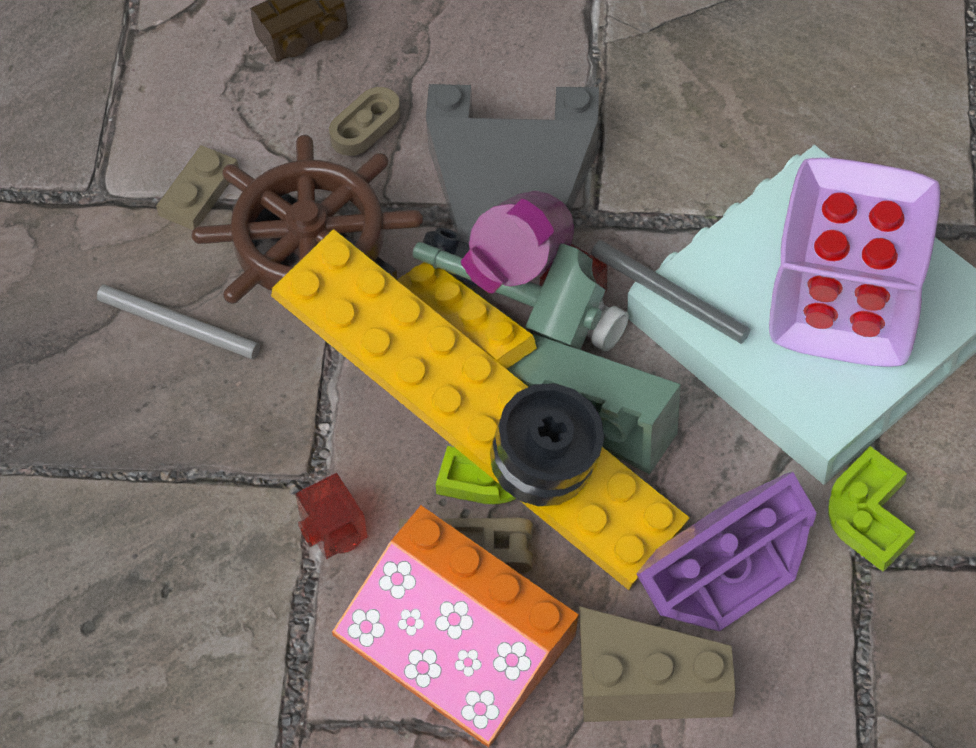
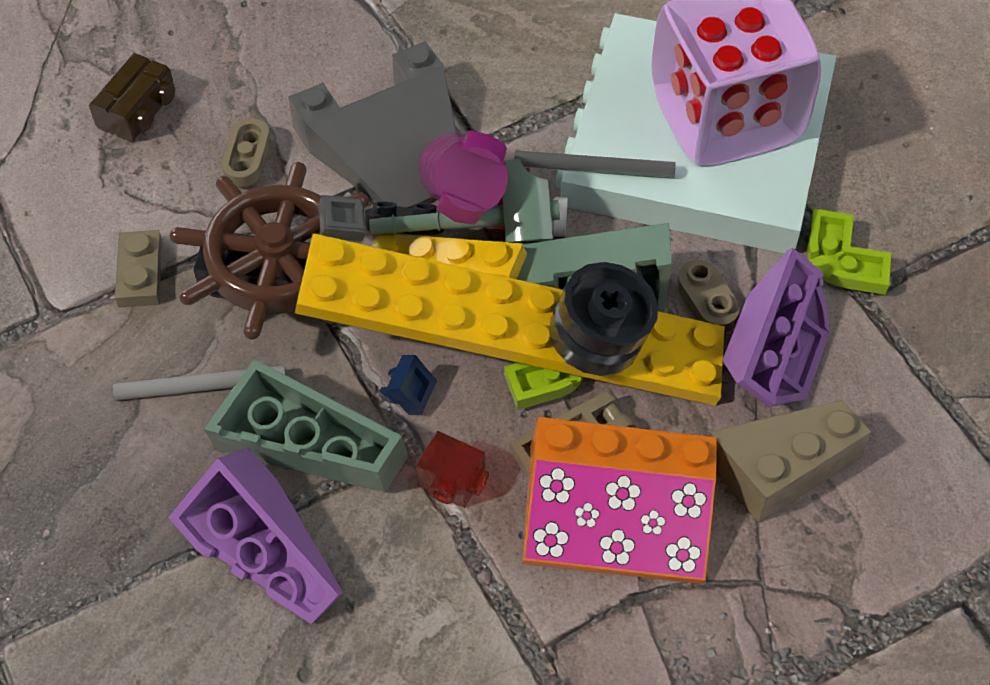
camera: 35 degrees left, 0 degrees up
(126, 464) = (252, 527): none -> medium lavender wedge
(219, 404) = (305, 431): none -> sand green wedge
(352, 419) = (409, 385): none -> dark blue tile
(376, 227) = (342, 217): none -> dark grey tile
(700, 477) = (706, 292): none -> dark tan plate

